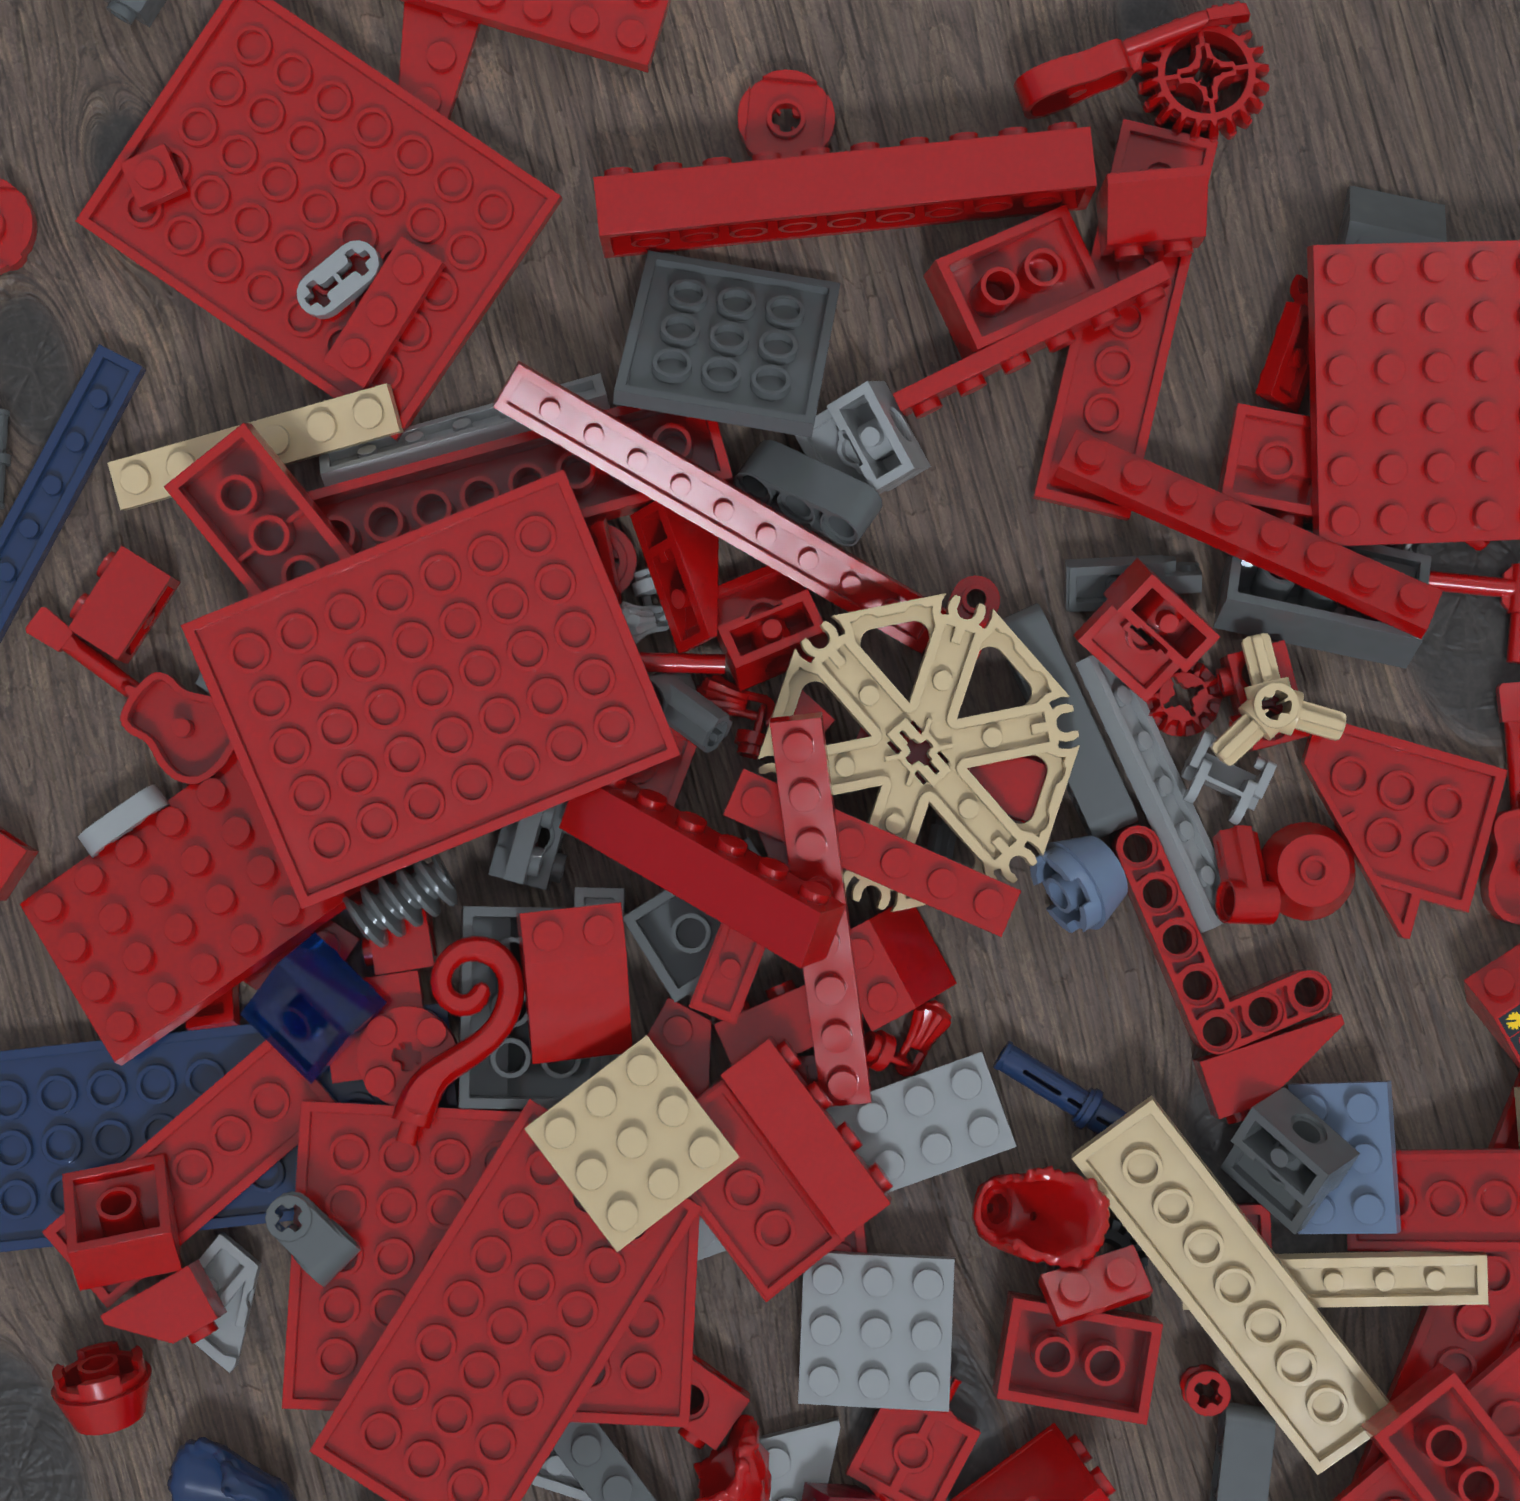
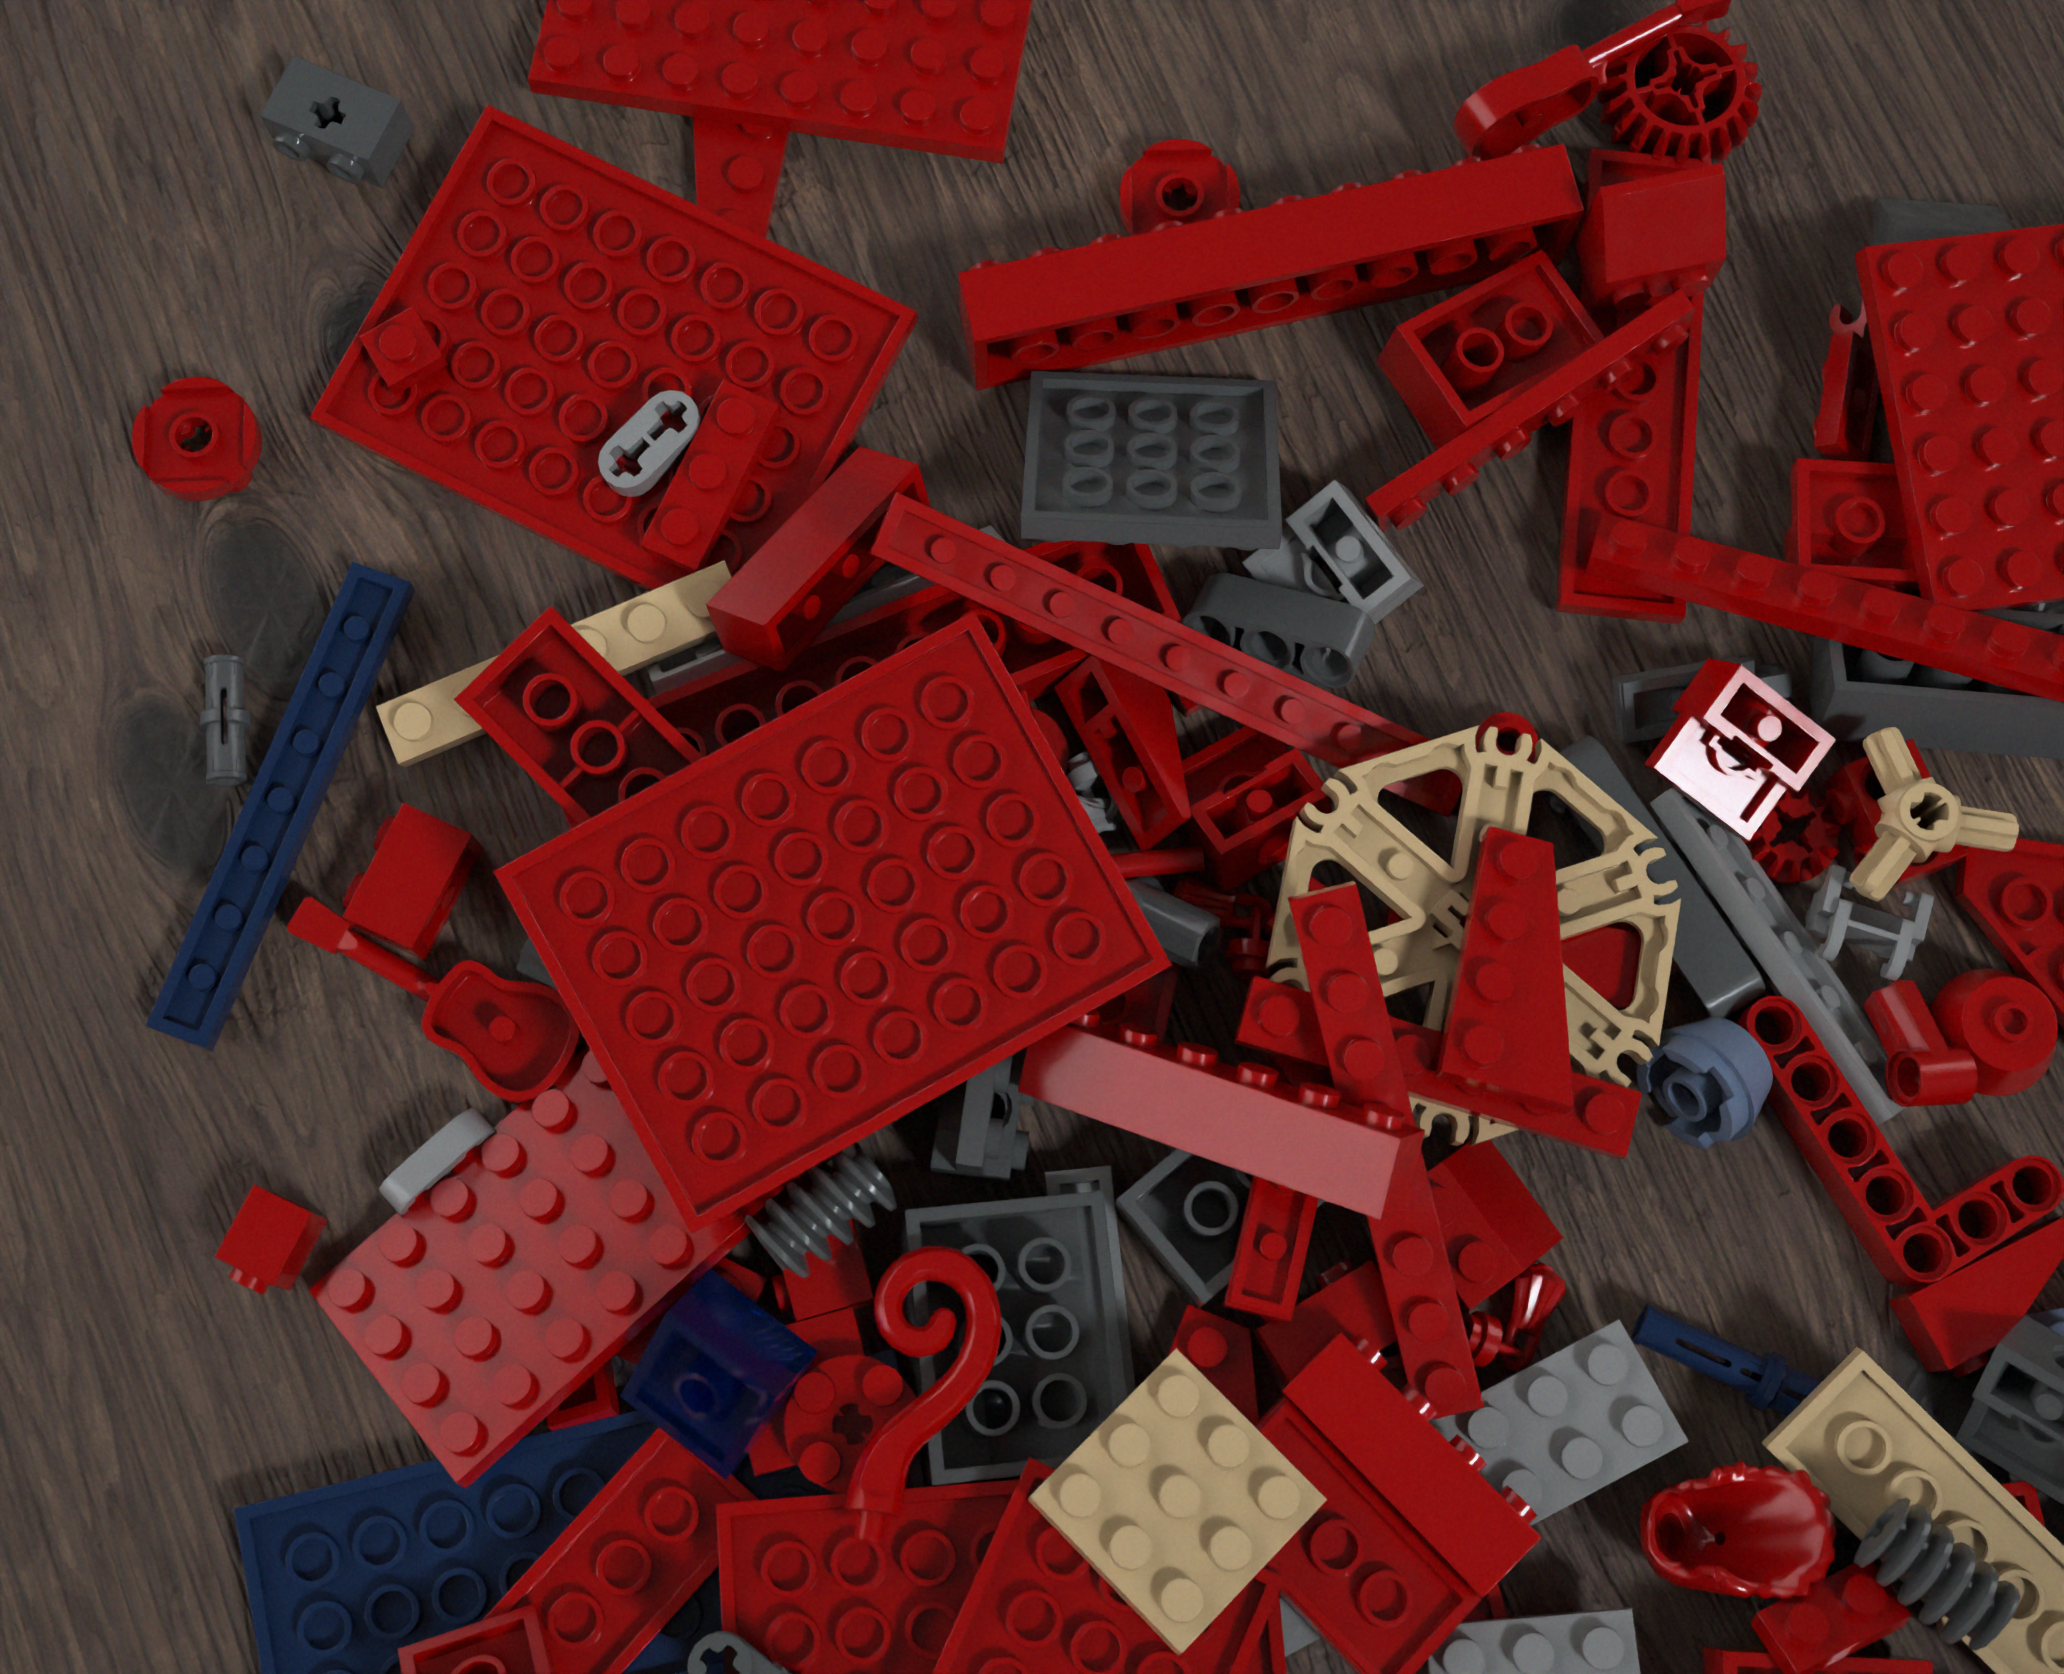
camera: 10 degrees left, 10 degrees down
(457, 392) = (812, 561): none -> red brick
(575, 982) = (1068, 1290): red slope -> none
(932, 802) = (1508, 987): none -> red wing
(1175, 1264) = (1940, 1573): none -> dark grey piece

